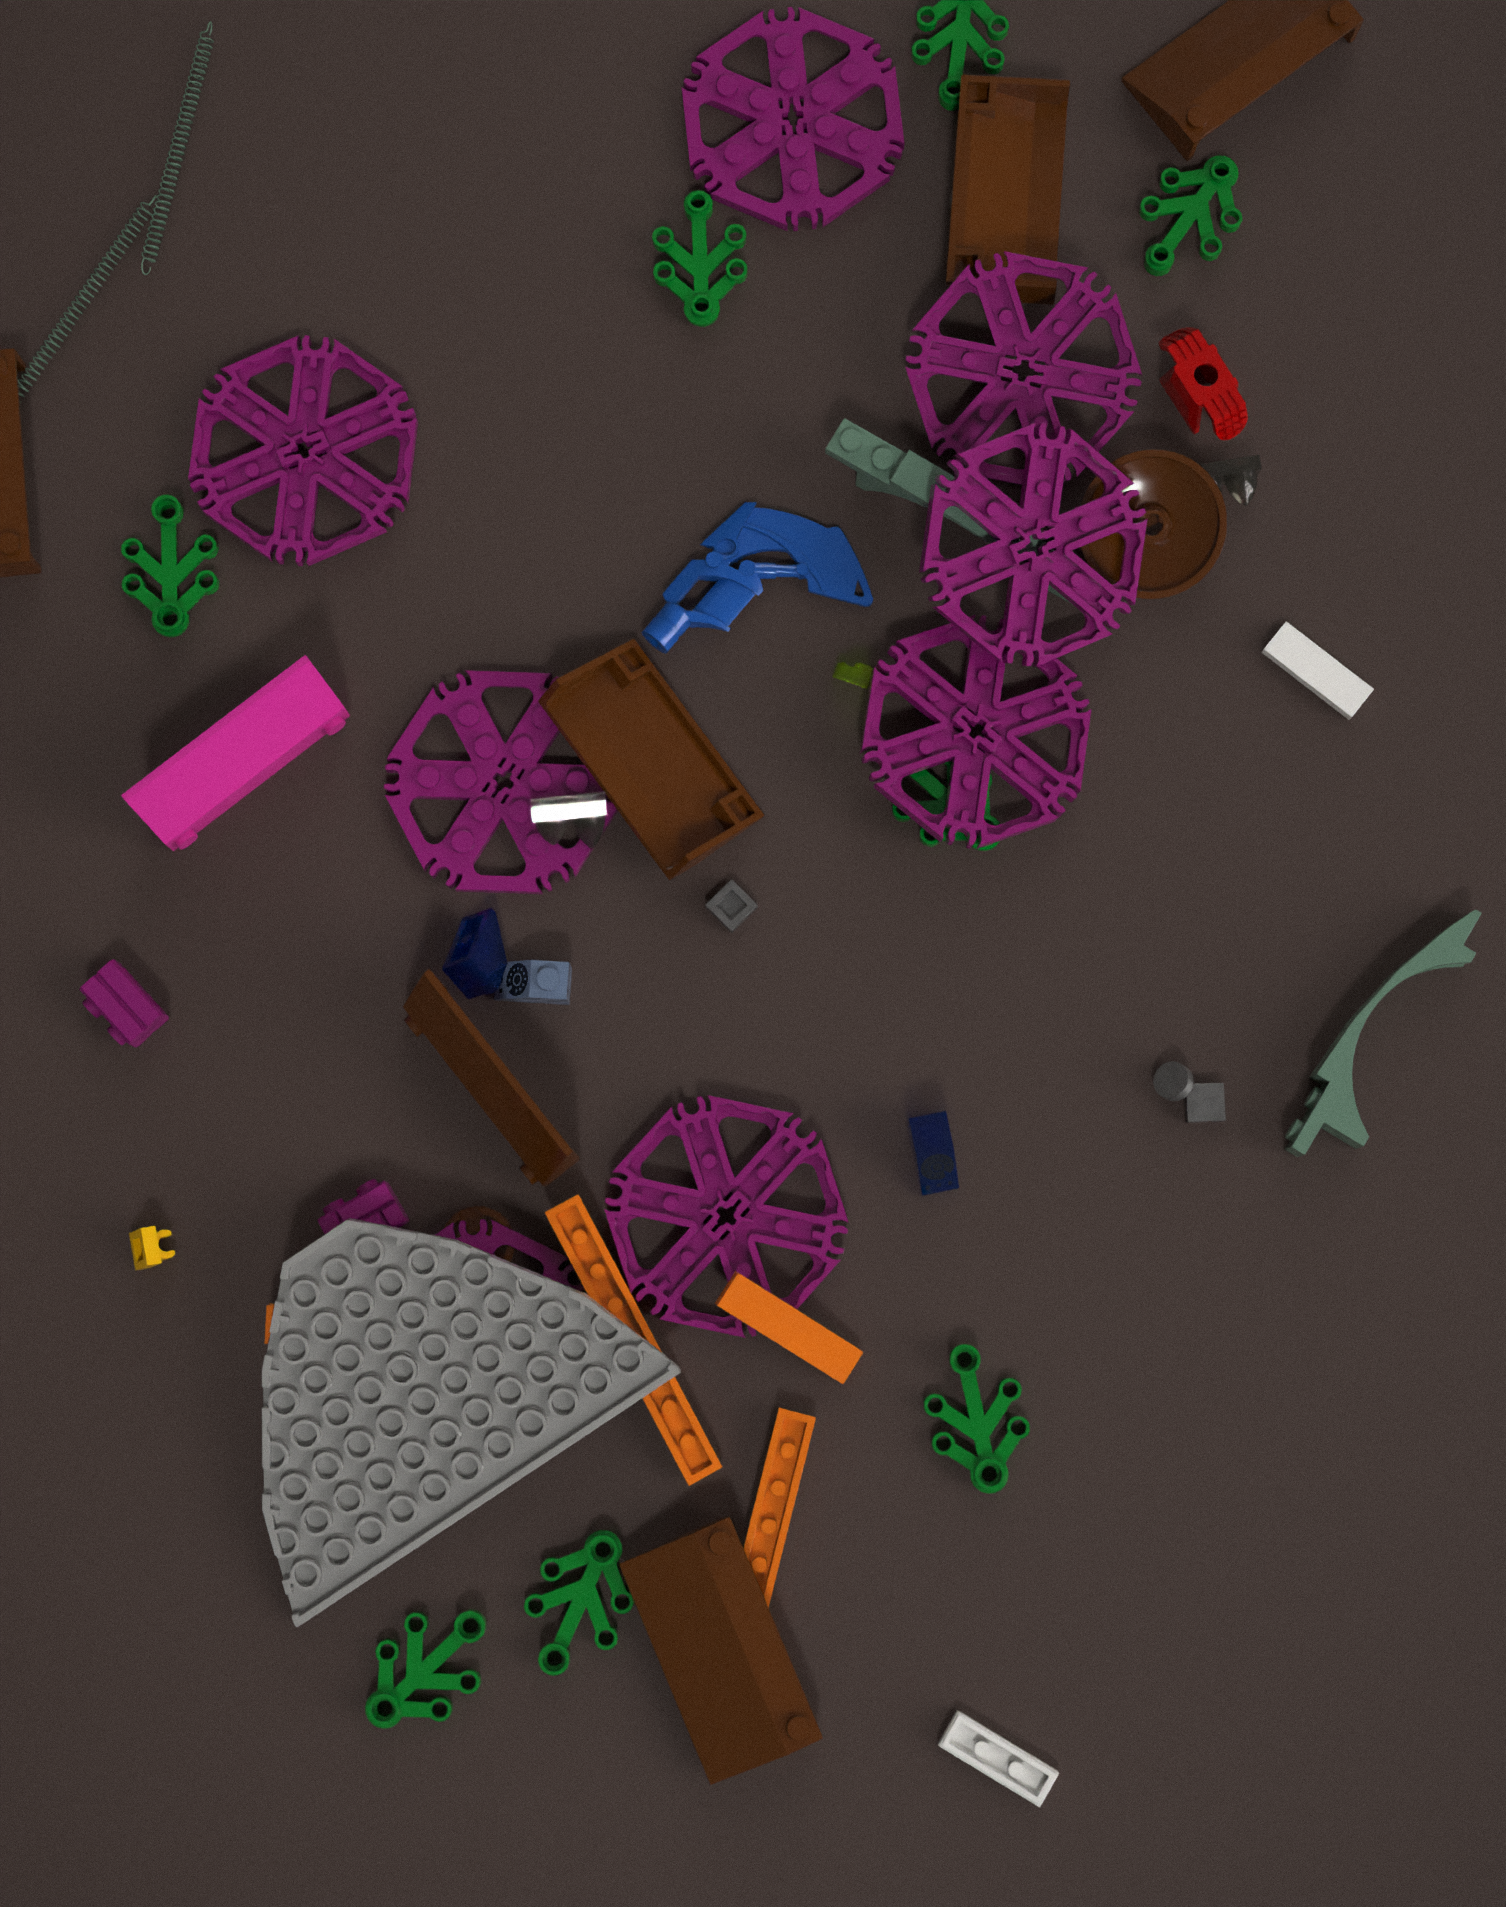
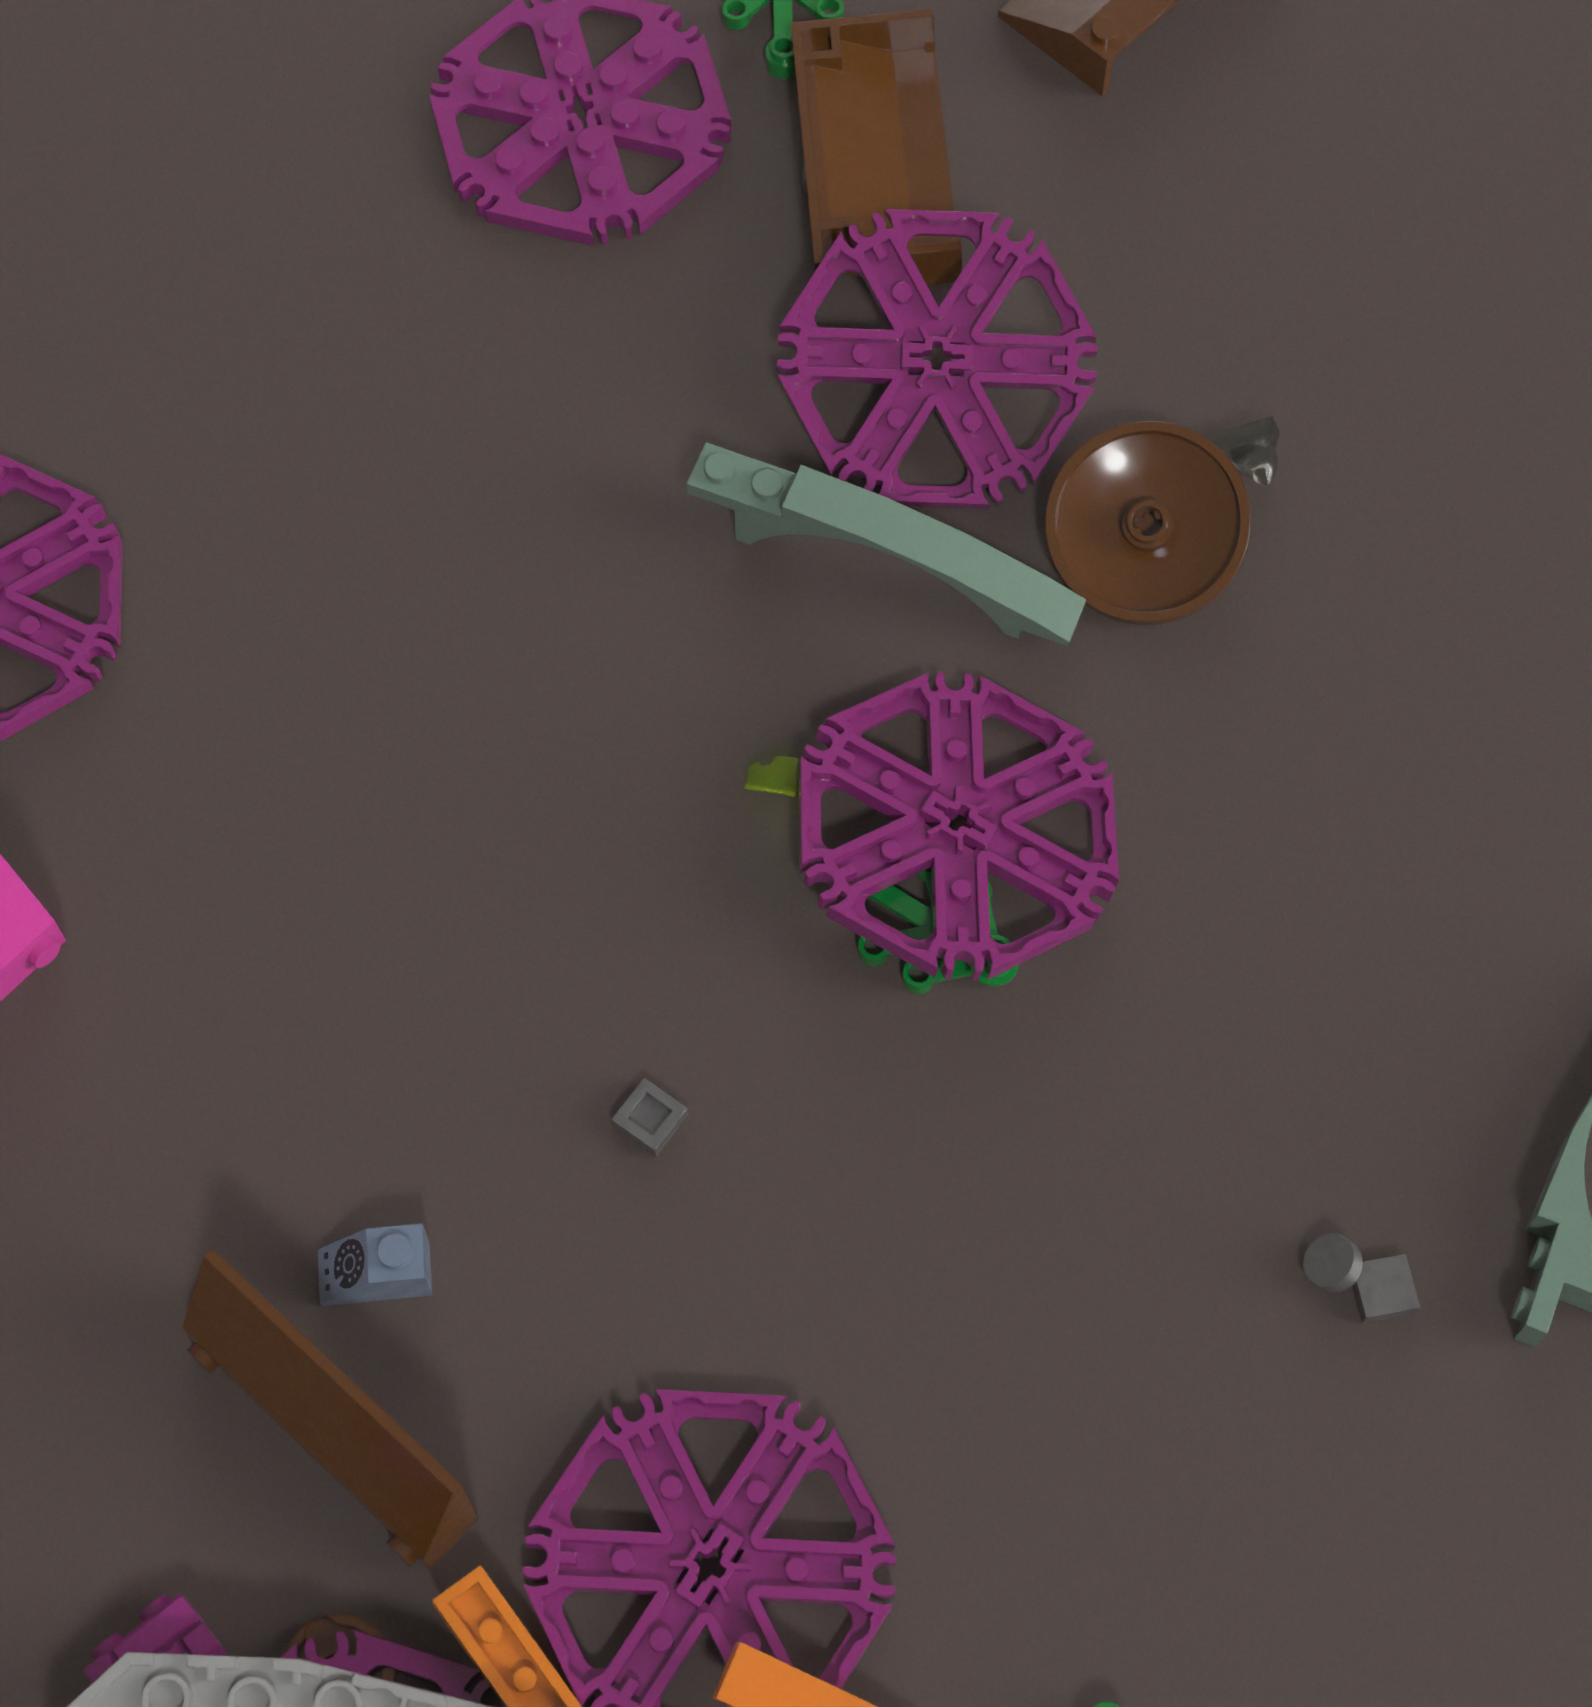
camera: 10 degrees left, 15 degrees down
(469, 778) = (320, 1026): magenta plate -> none
(477, 955) = (286, 1240): clear blue slope -> none
(585, 810) = (421, 1016): clear smoke tile -> none
(650, 757) = (502, 928): reddish brown slope -> none
(700, 265) = (483, 297): green plant -> none
(820, 555) = (700, 634): blue piece -> none
(933, 1153) = (1003, 1421): clear blue slope -> none
(1008, 521) = (987, 516): magenta plate -> none
(1193, 209) = (1120, 145): green plant -> none
(1219, 399) = (1177, 329): red piece -> none
(1317, 670) = (1411, 680): white tile -> none

